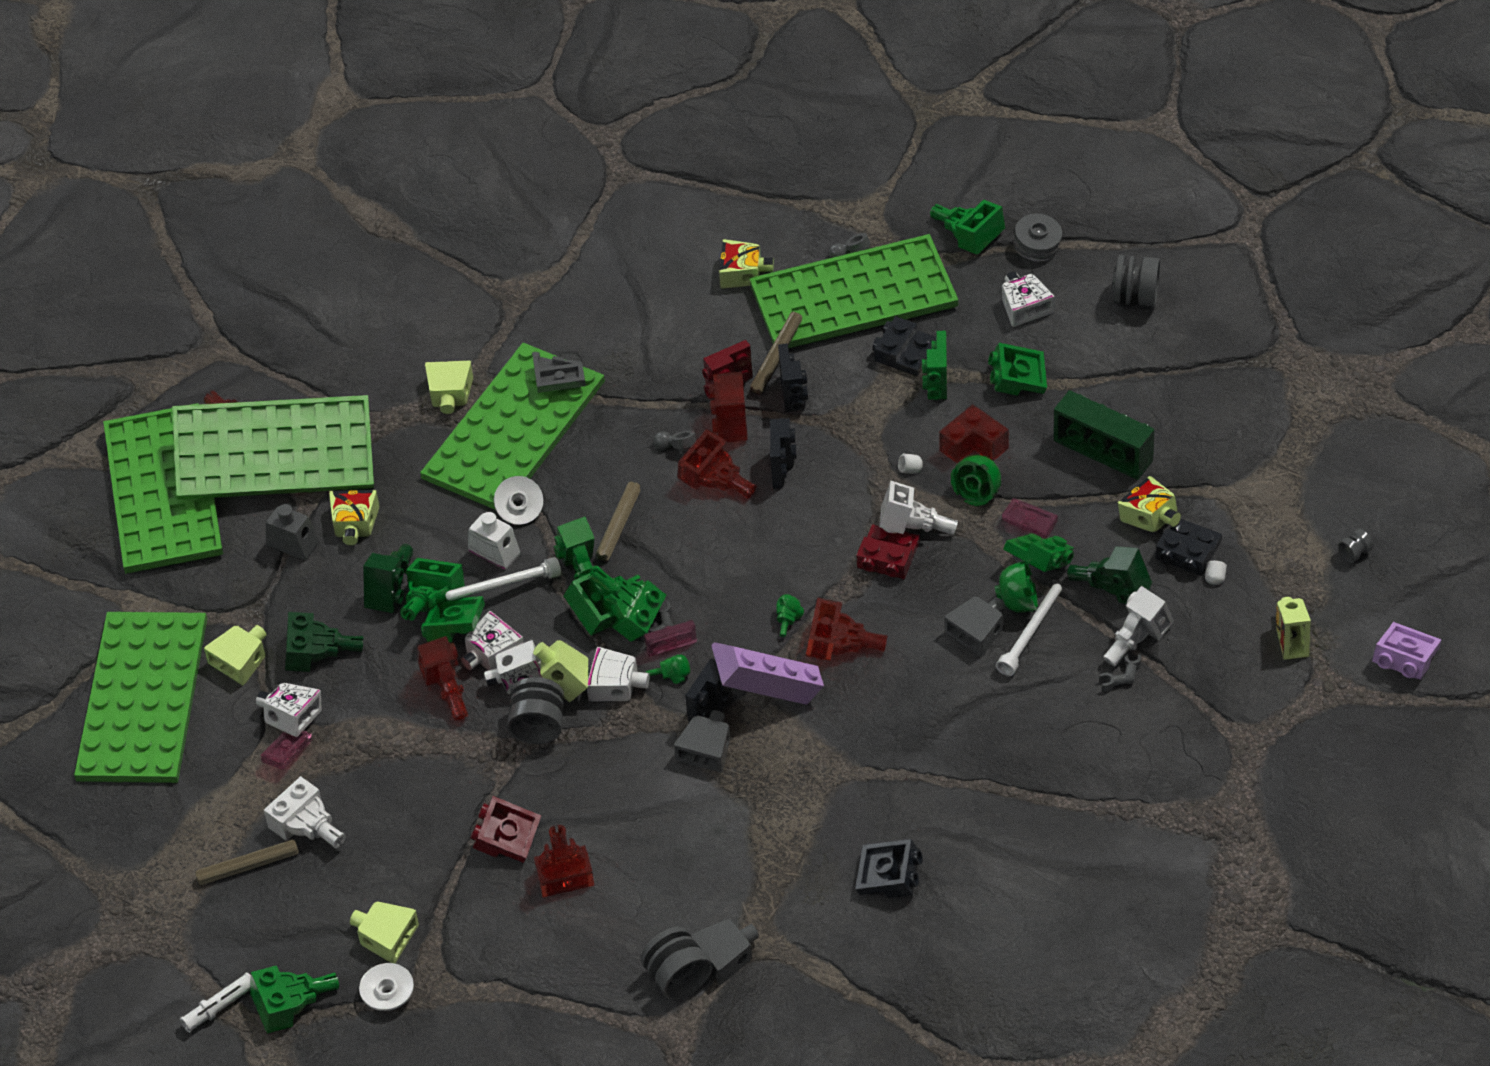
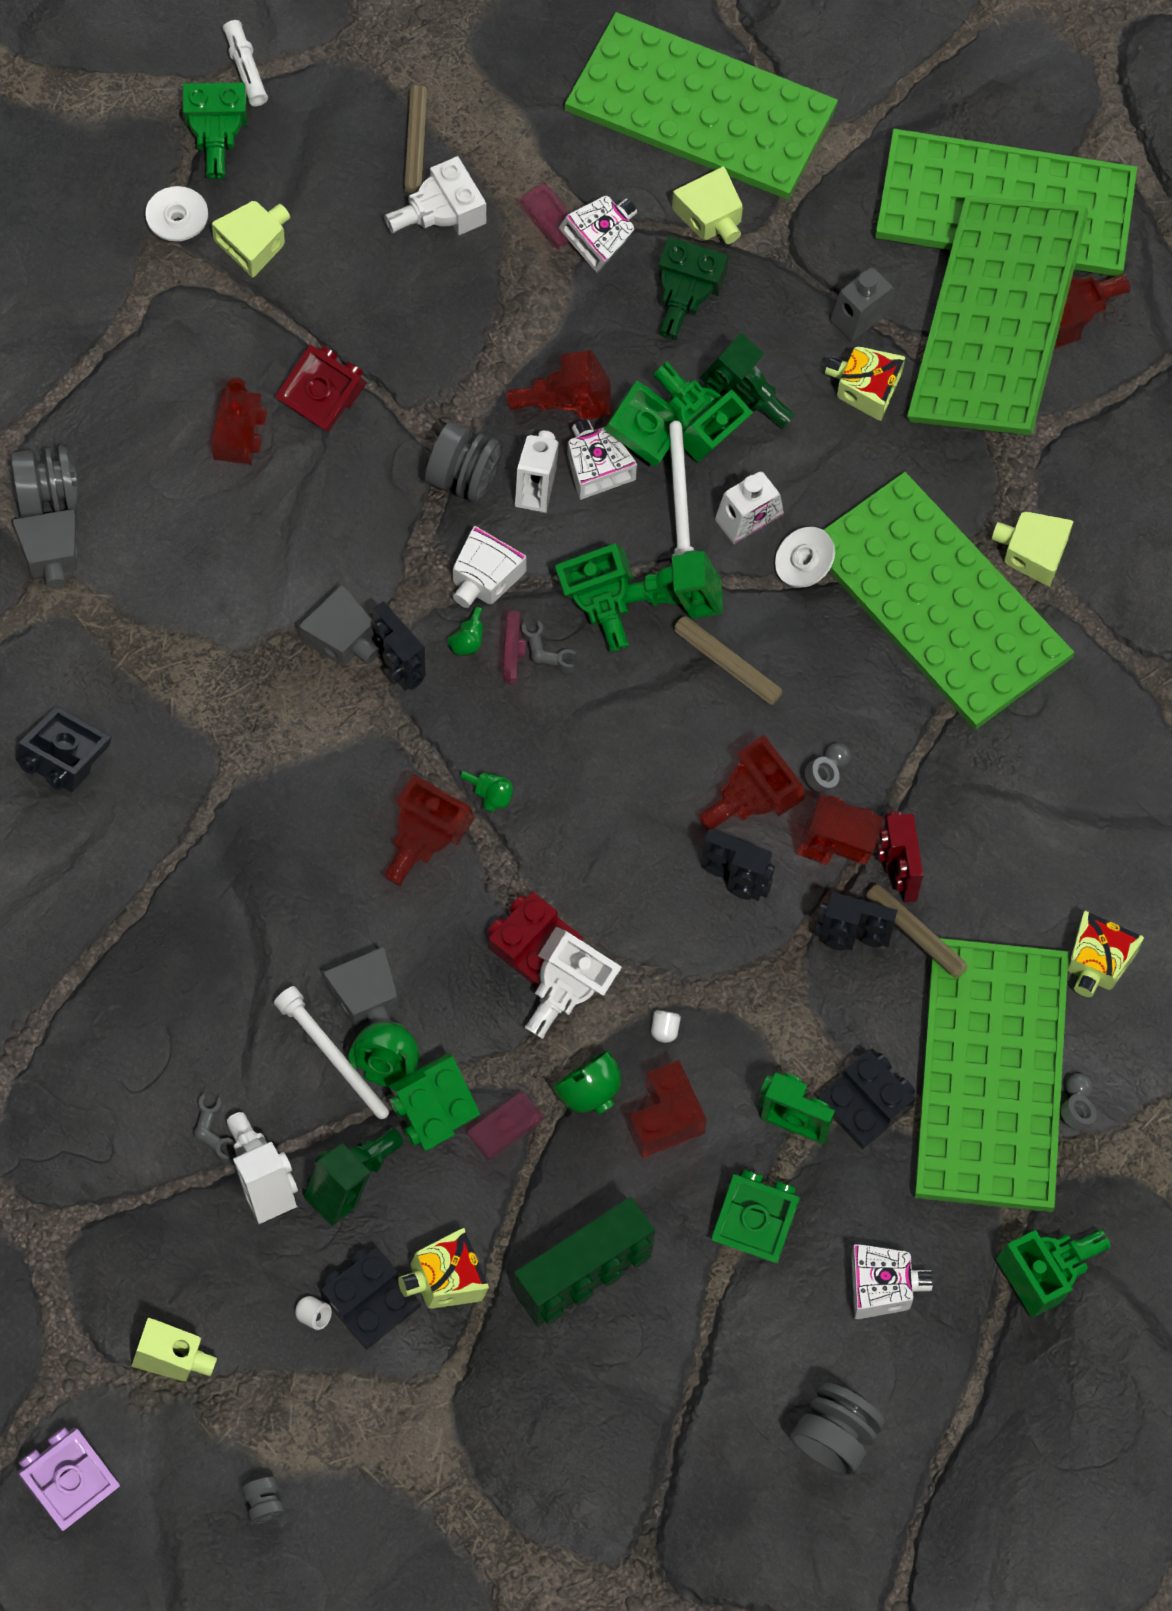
camera: 105 degrees right, 15 degrees up
(557, 373) = (989, 659): dark grey wing -> none
(564, 667) = (507, 507): yellowish green torso -> none
(630, 601) = (571, 609): green brick -> none
(767, 674) = (390, 709): lavender slope -> none
(1037, 237) = (990, 1347): dark grey piece -> none

